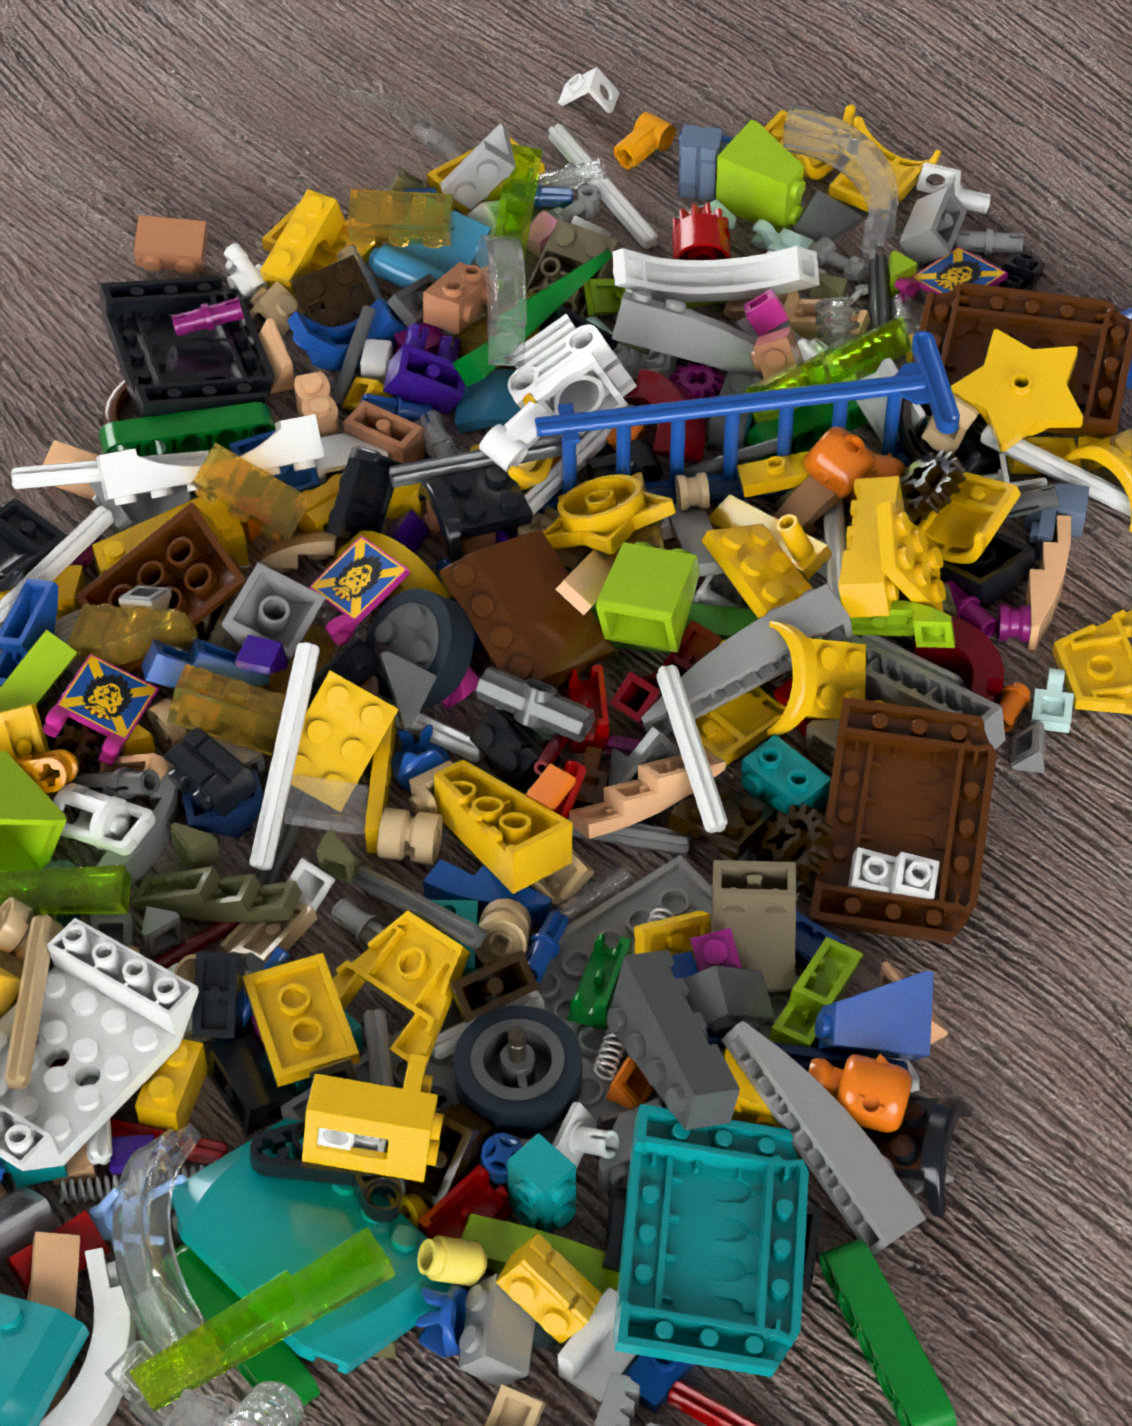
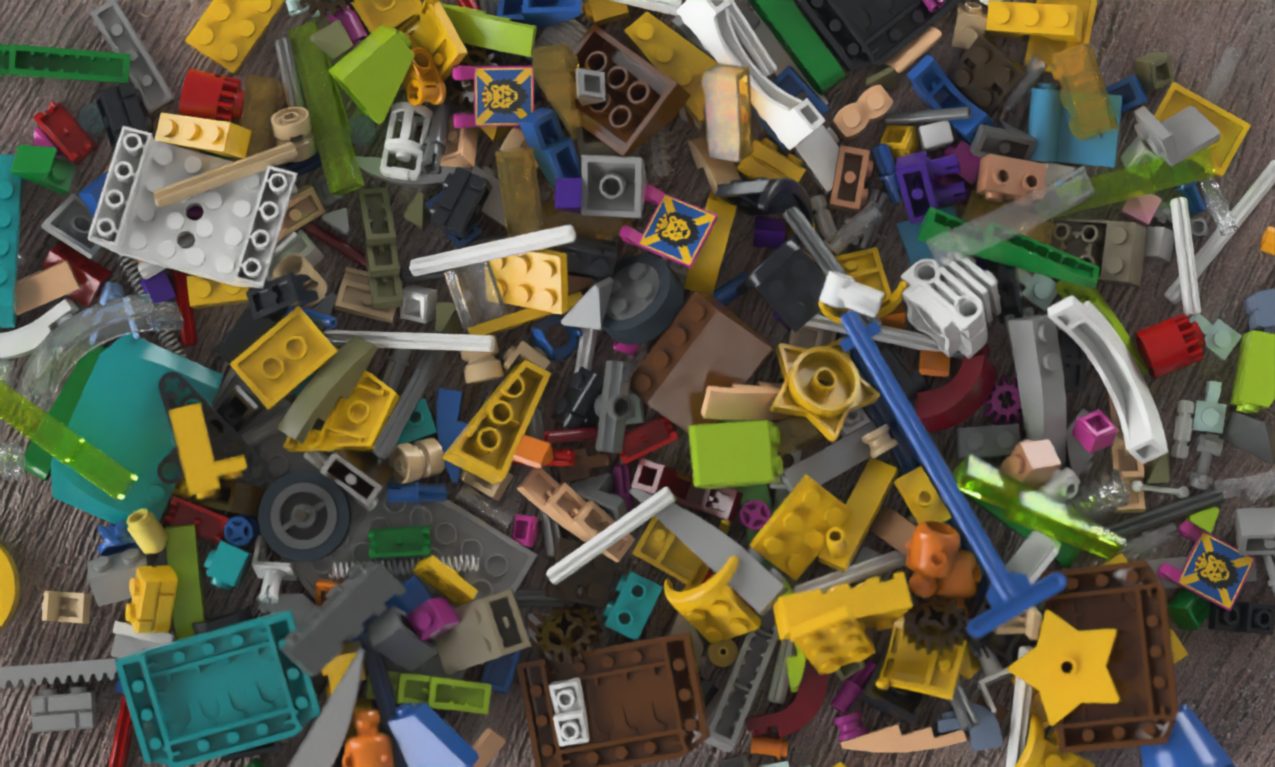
camera: 70 degrees right, 35 degrees up
(288, 390) = (885, 78): none -> olive slope
(358, 873) = (423, 341): none -> white axle
(366, 987) = (322, 392): none -> olive slope
(612, 206) = (1185, 256): none -> white axle
(642, 858) = (525, 529): none -> dark pink slope
(727, 613) = (756, 510): none -> magenta wheel

